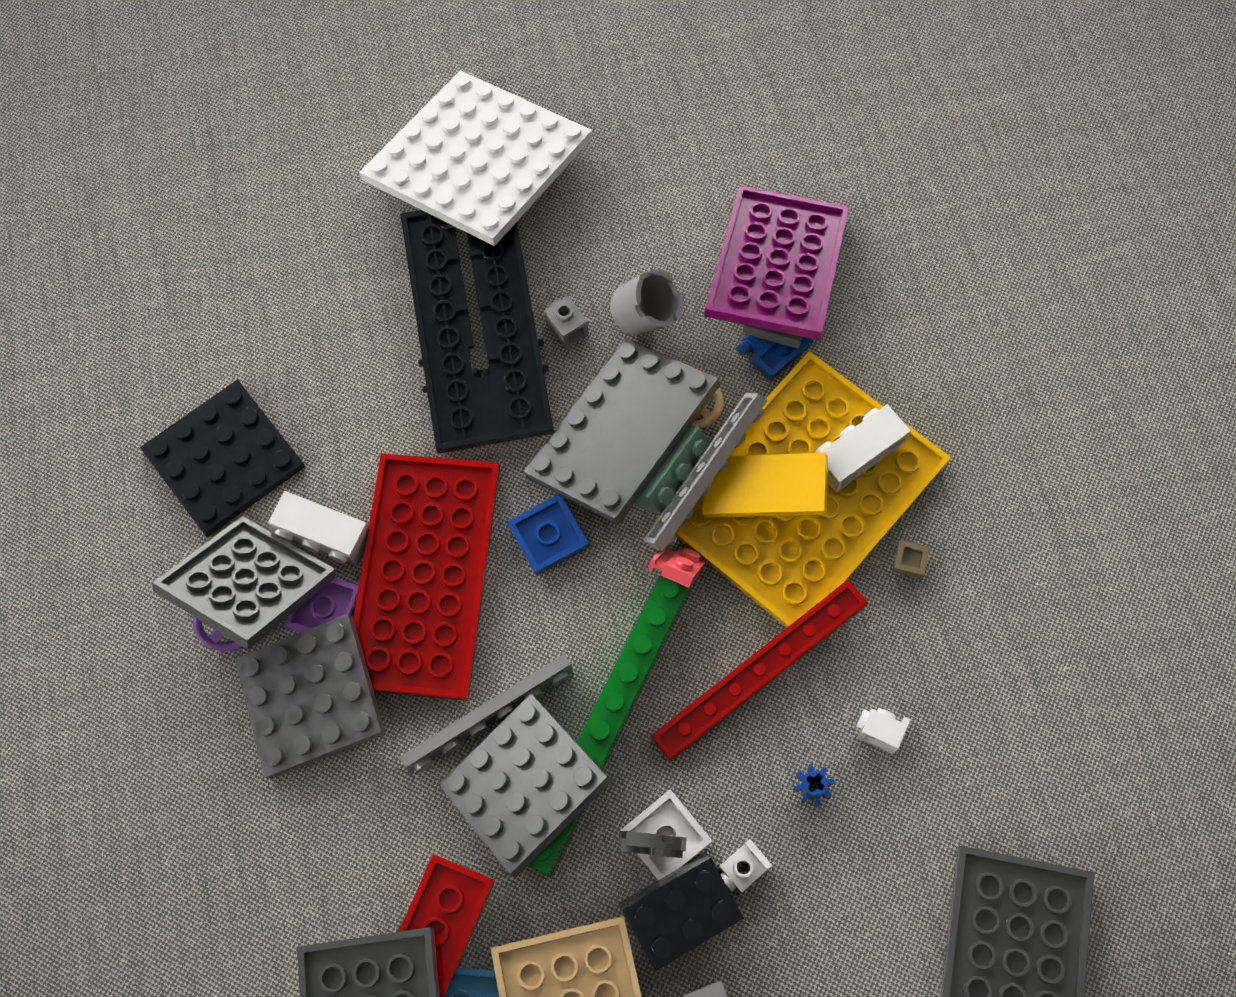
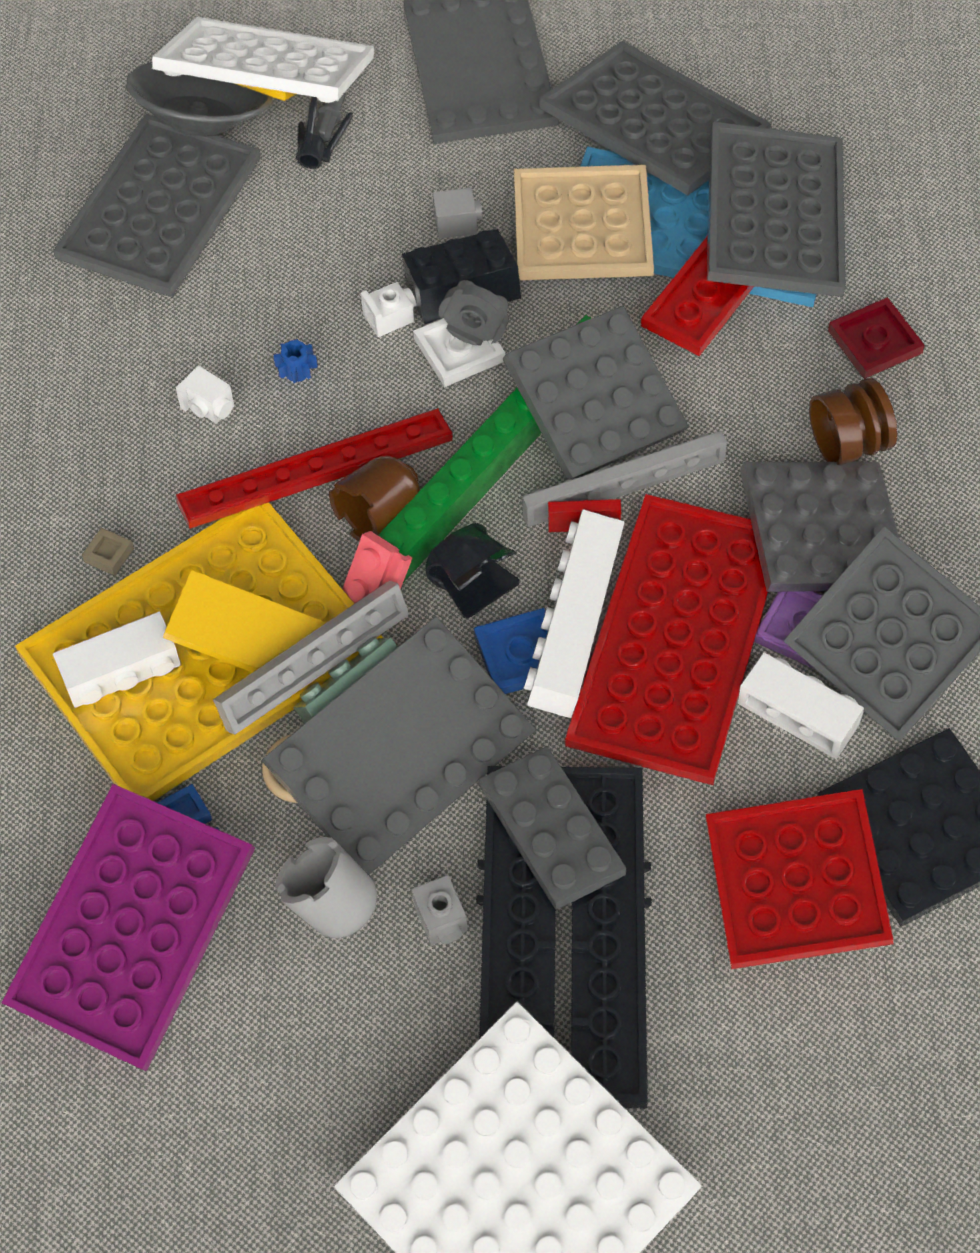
camera: 170 degrees left, 10 degrees down
(271, 923) = (876, 338): none -> dark red plate
(282, 801) = (853, 421): none -> reddish brown wheel
(312, 388) = (798, 879): none -> red plate
(495, 385) = (552, 827): none -> dark grey plate
(506, 567) = (576, 614): none -> white brick
(514, 668) = (563, 512): none -> red tile
(599, 592) = (468, 569): none -> black piece
(695, 642) = (374, 494): none -> reddish brown cylinder

